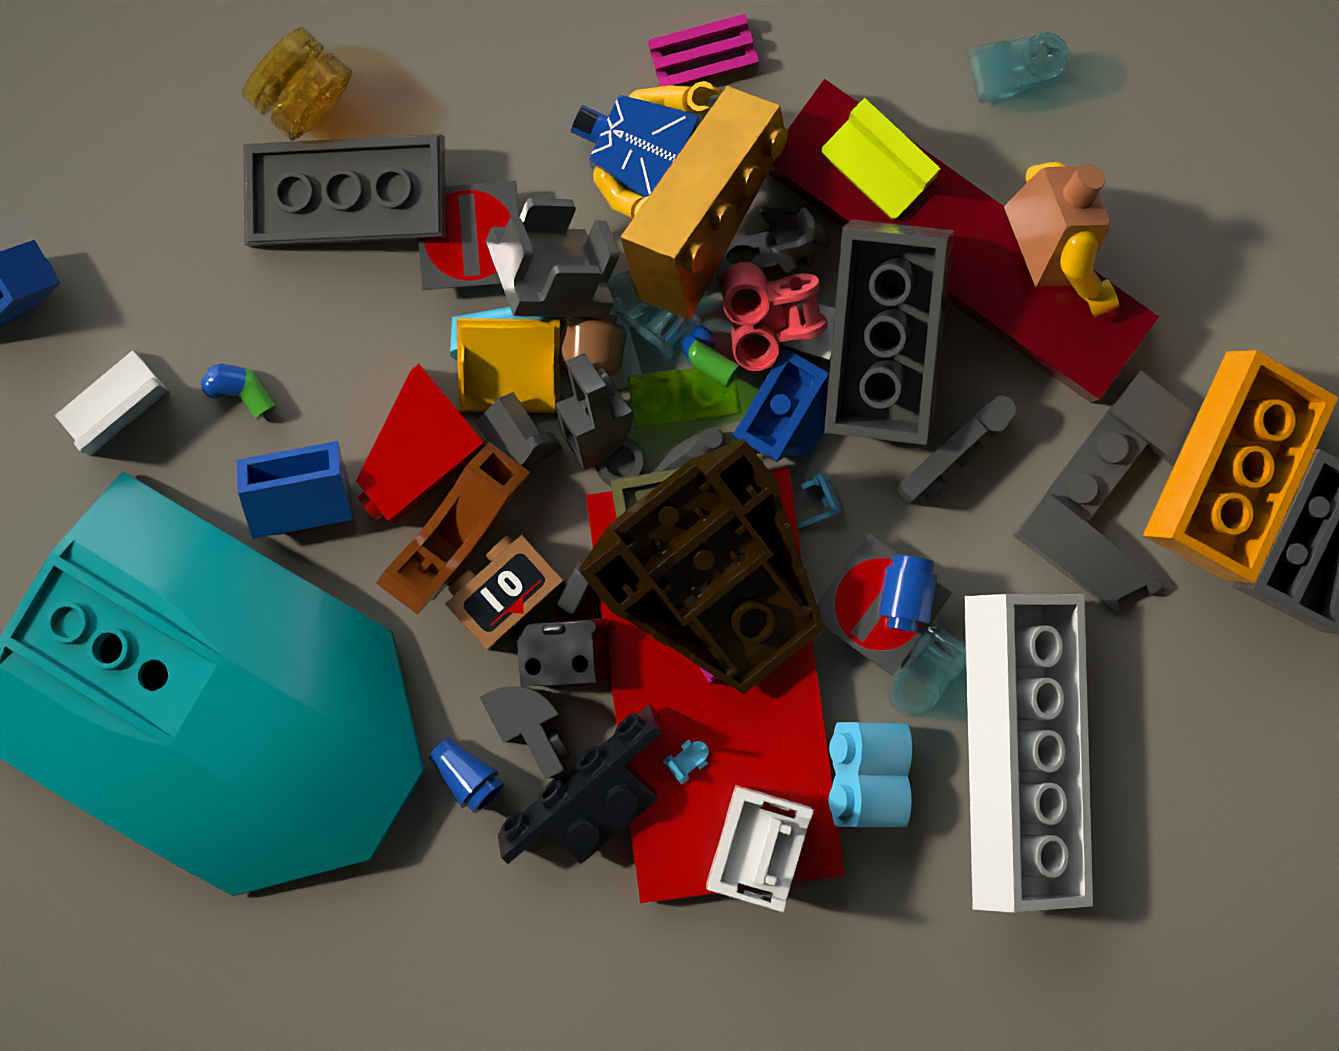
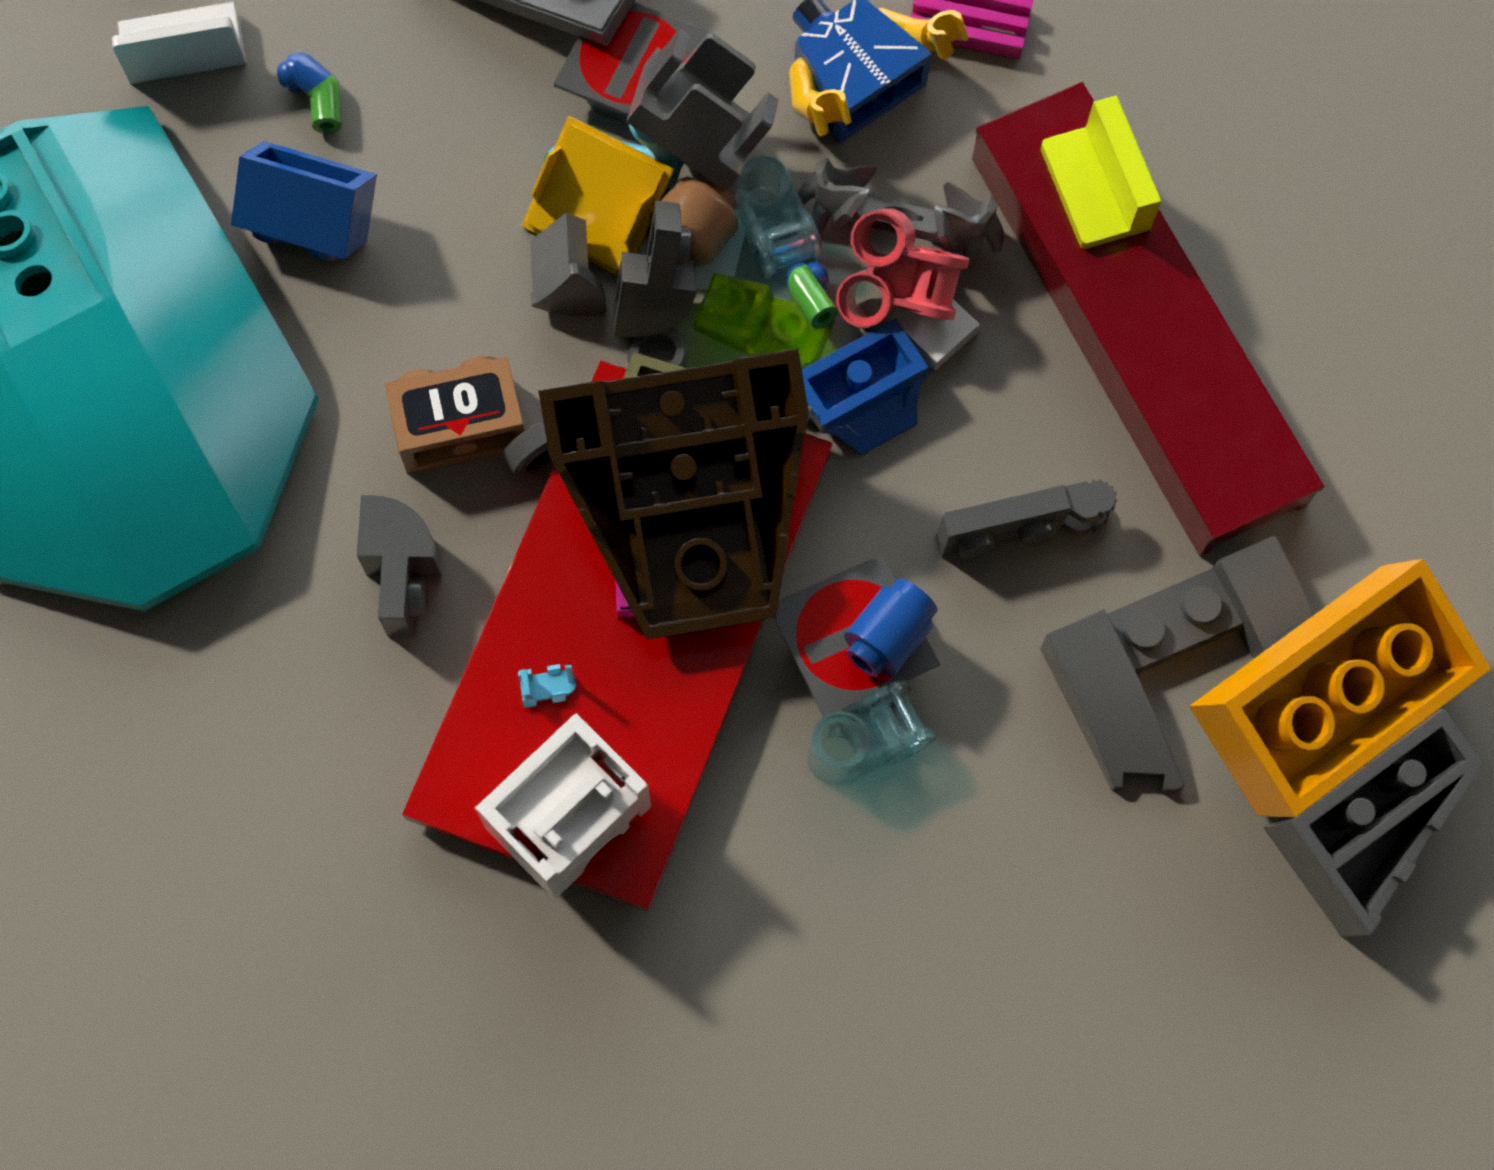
camera: 25 degrees right, 15 degrees down
(416, 449) = (450, 230): red slope -> none
(454, 529) = (442, 329): dark orange arch -> none
(467, 776) = (301, 584): blue cone -> none
(563, 652) = (481, 503): black piece -> none
(592, 799) = (418, 673): black bracket -> none
(702, 201) = (883, 116): wedge -> none
(830, 499) = (860, 500): medium azure piece -> none
(871, 774) = (739, 809): medium azure brick -> none
(888, 331) = (1018, 343): dark grey brick -> none
(1008, 69) = (1289, 176): clear light blue piece -> none
(1028, 752) = (932, 876): white brick -> none
(1062, 229) = (1262, 326): nougat torso -> none

